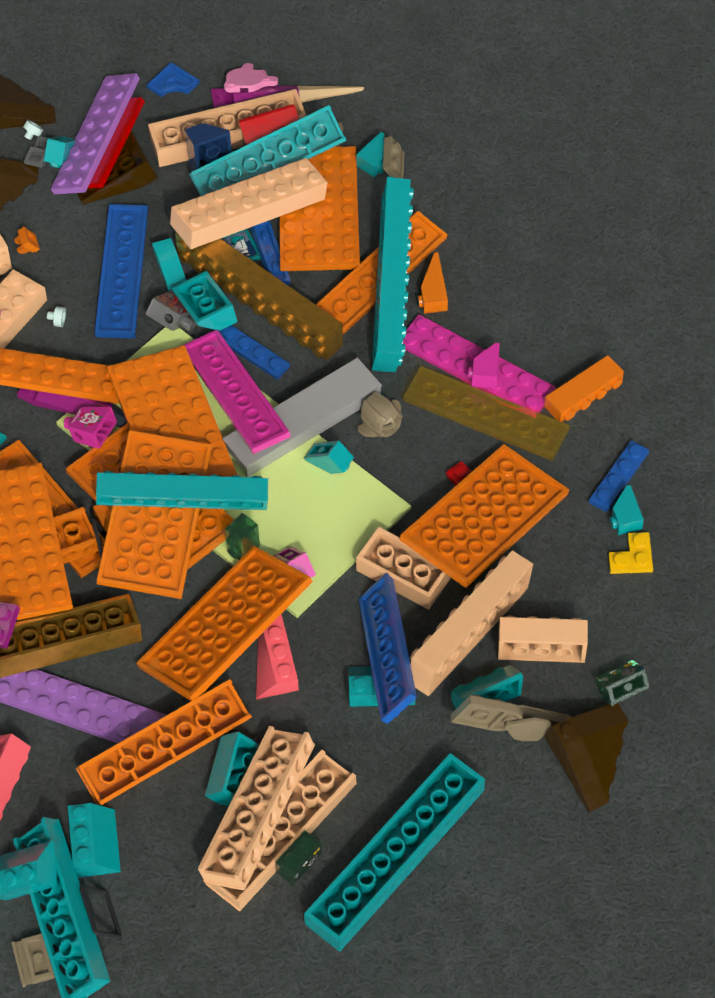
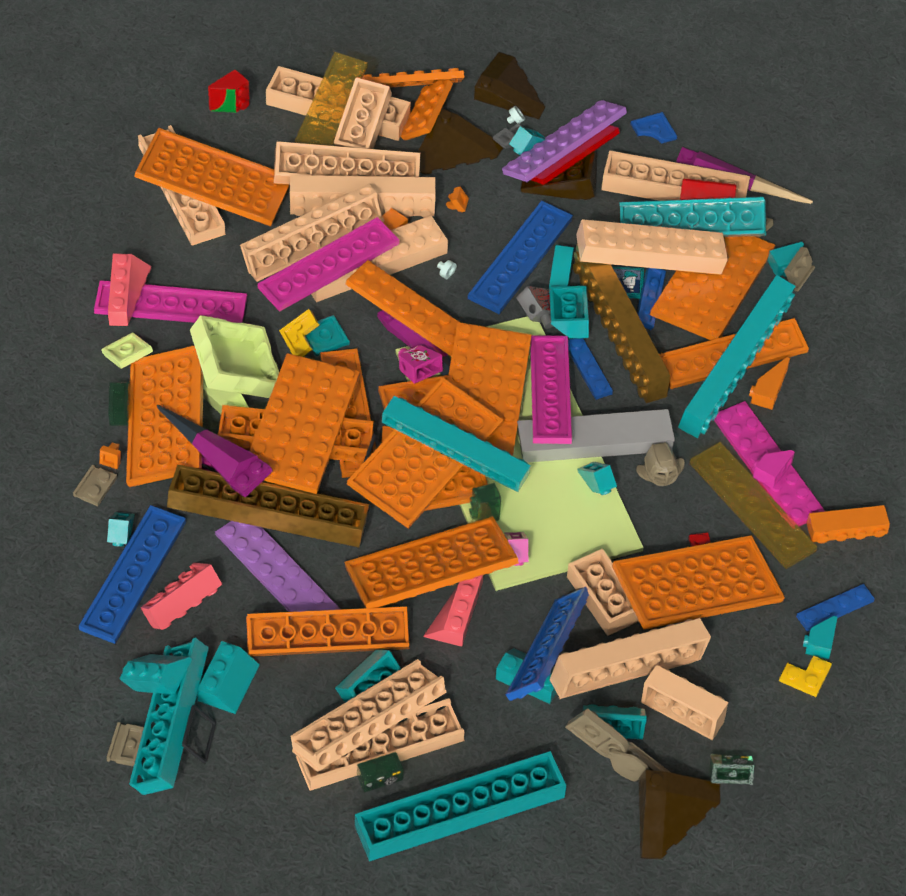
camera: 25 degrees right, 5 degrees down
(206, 144) = (646, 185): dark blue slope -> none
(248, 78) = (717, 151): bright pink tile -> none

